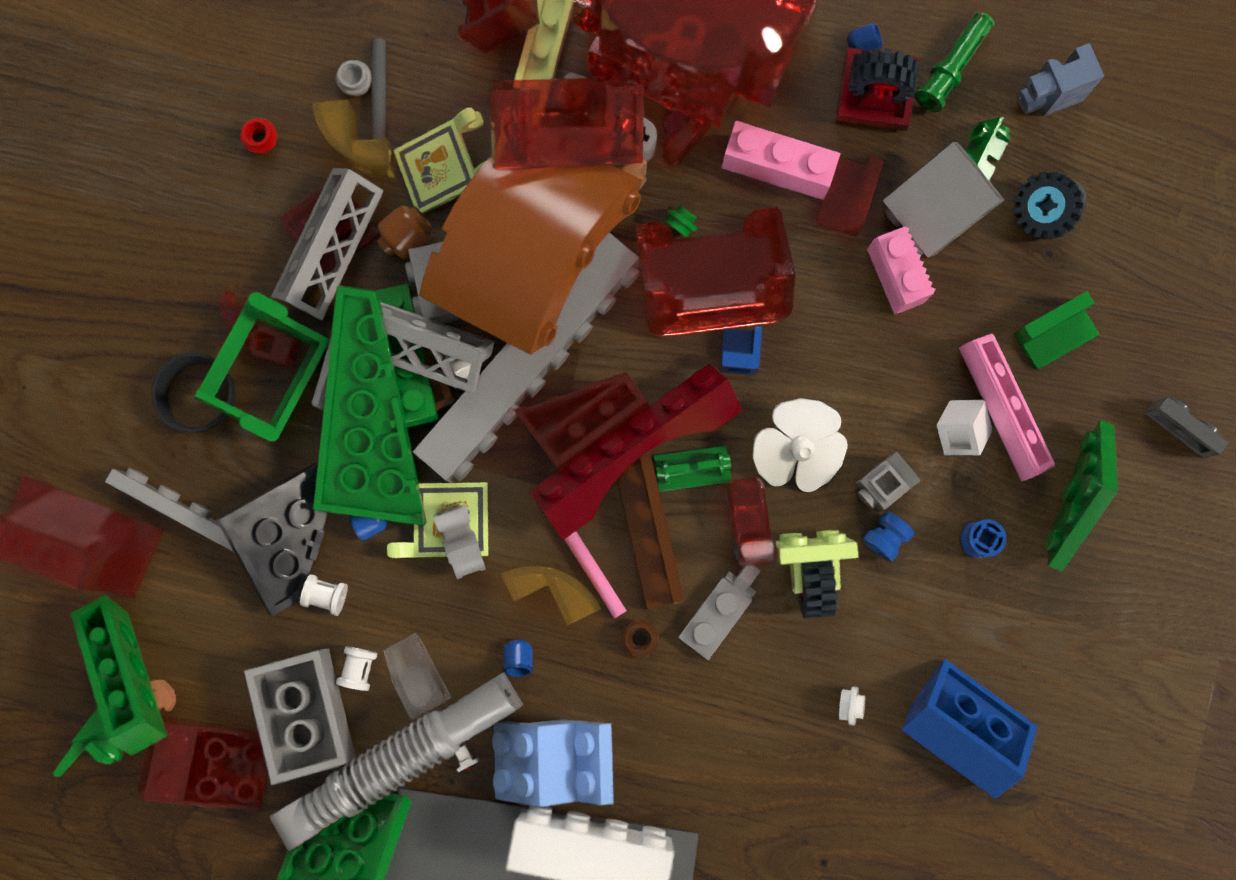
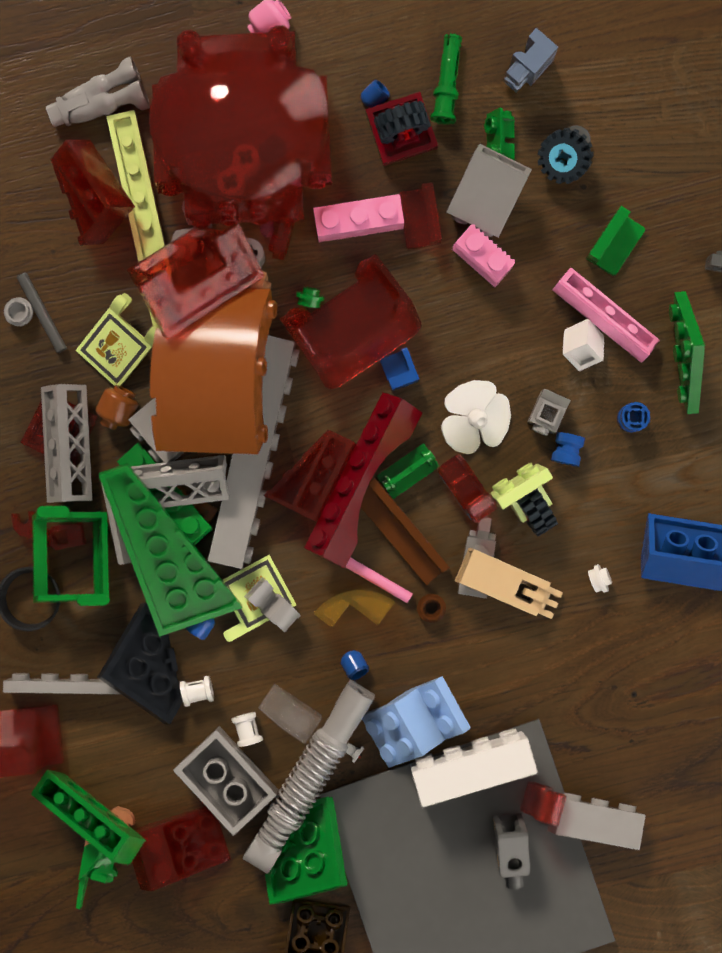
camera: 30 degrees left, 5 degrees up
(339, 128) = (28, 355): clear yellow brick -> none
(738, 649) = (502, 583): none -> tan hinge

